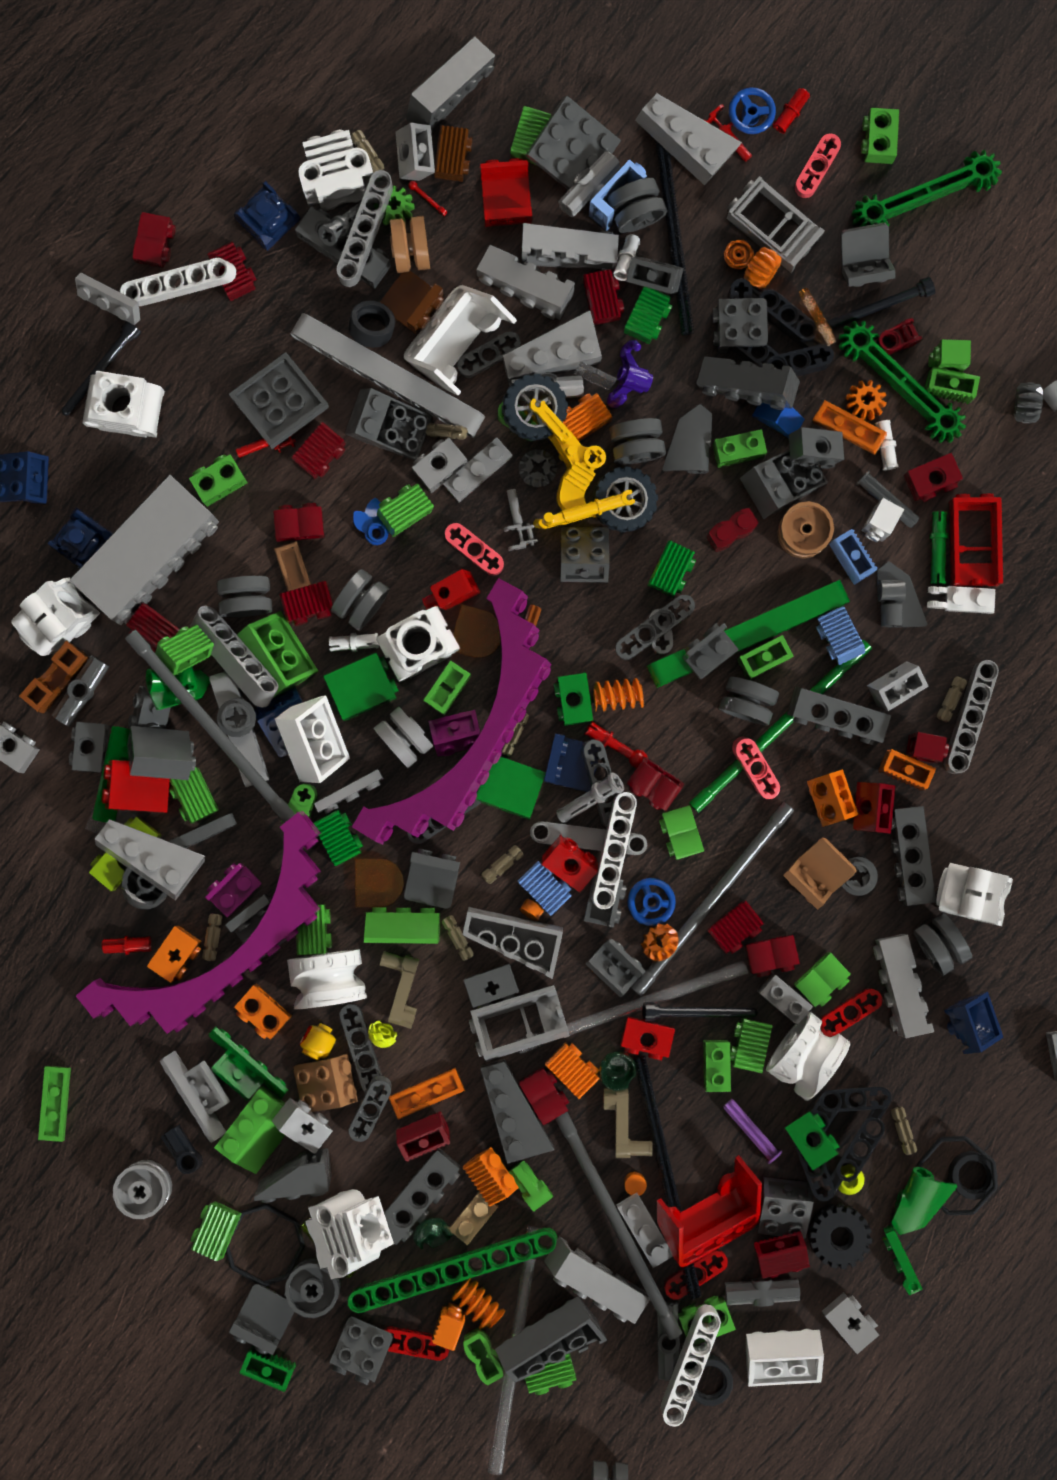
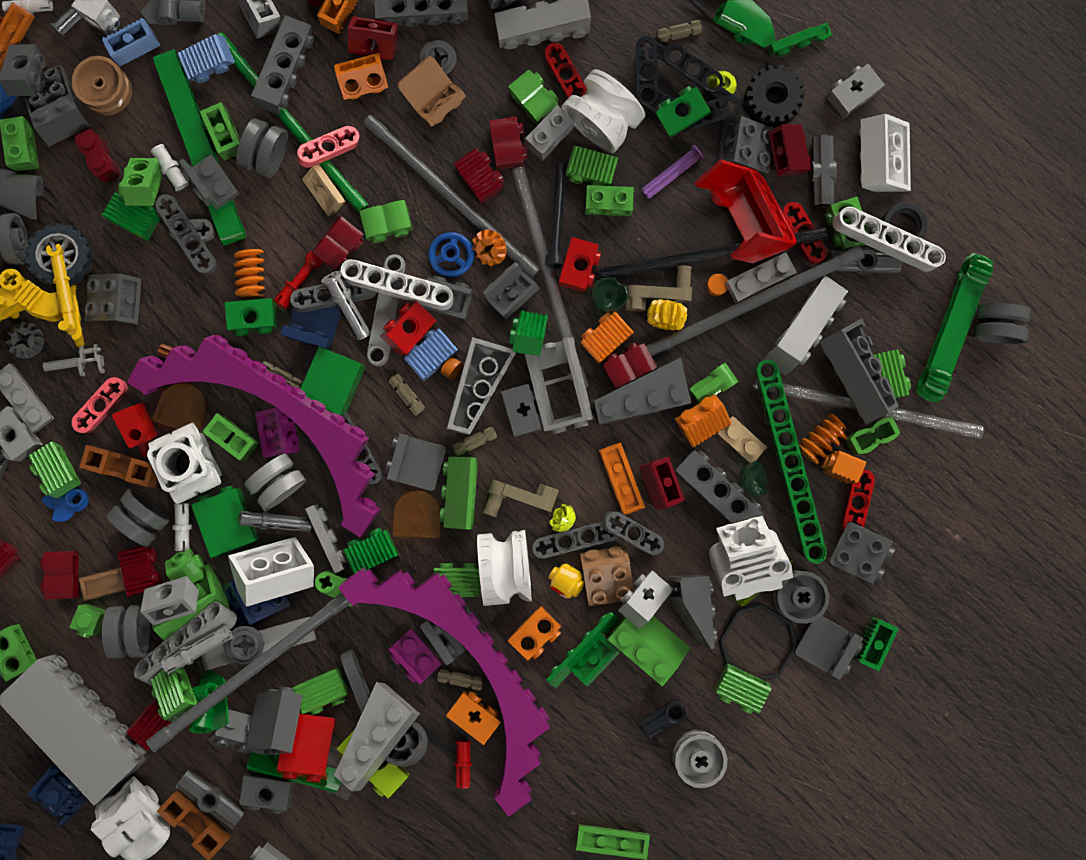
camera: 85 degrees left, 0 degrees up
(199, 1091) = (608, 698): light grey bracket -> none
(232, 676) = (188, 654): none -> light grey pin
(254, 555) = (88, 620): none -> bright green brick
(277, 640) = (169, 600): none -> light grey brick
(311, 649) = (184, 565): none -> bright green brick
(363, 738) = (283, 522): none -> dark grey pin
(412, 578) = (118, 465): none -> dark orange arch
(554, 1423) = (955, 325): none -> green arm
(571, 989) = (528, 333): none -> green brick
(599, 1133) = (667, 315): none -> yellow gear
(706, 577) = (140, 182): none -> bright green brick
(710, 765) = (323, 190): none -> tan plate
(725, 603) = (169, 167): none -> white pin

